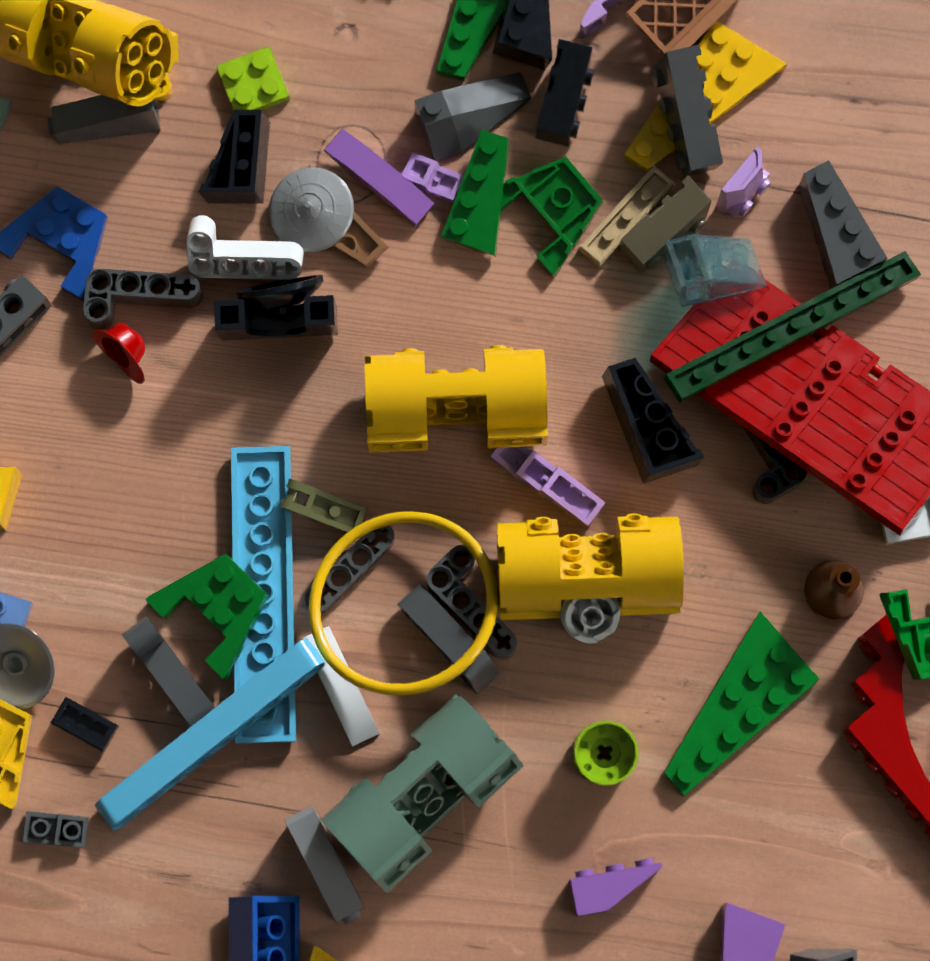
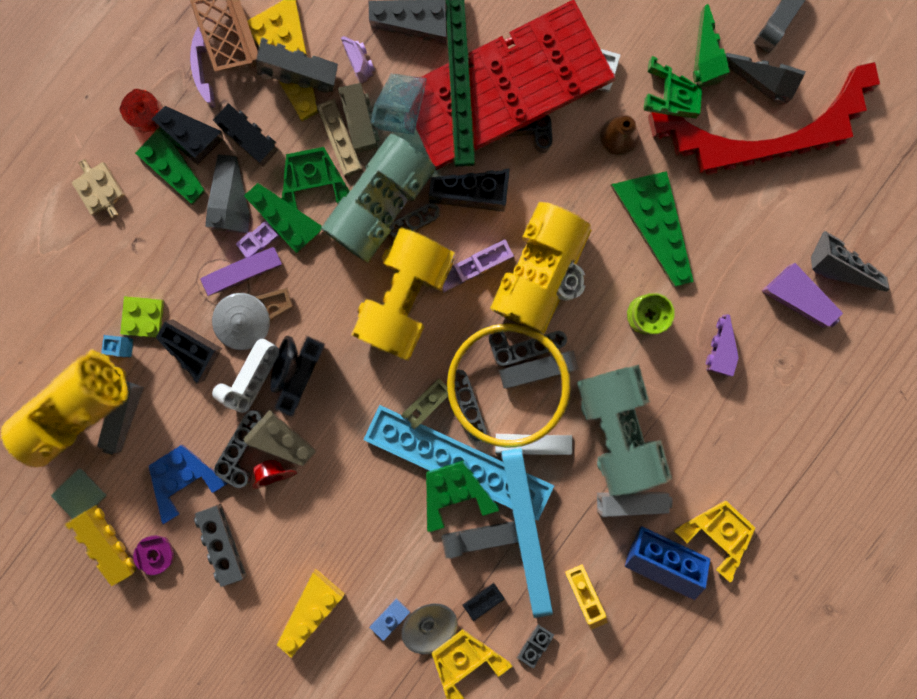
camera: 65 degrees left, 10 degrees up
(158, 867) = (586, 597): none -> yellow slope
(176, 335) = (279, 439): none -> dark tan wedge
(198, 70) = (117, 346): none -> dark azure slope
(569, 302) = (390, 180): none -> sand green cylinder
(589, 375) = (424, 209): none -> dark grey beam

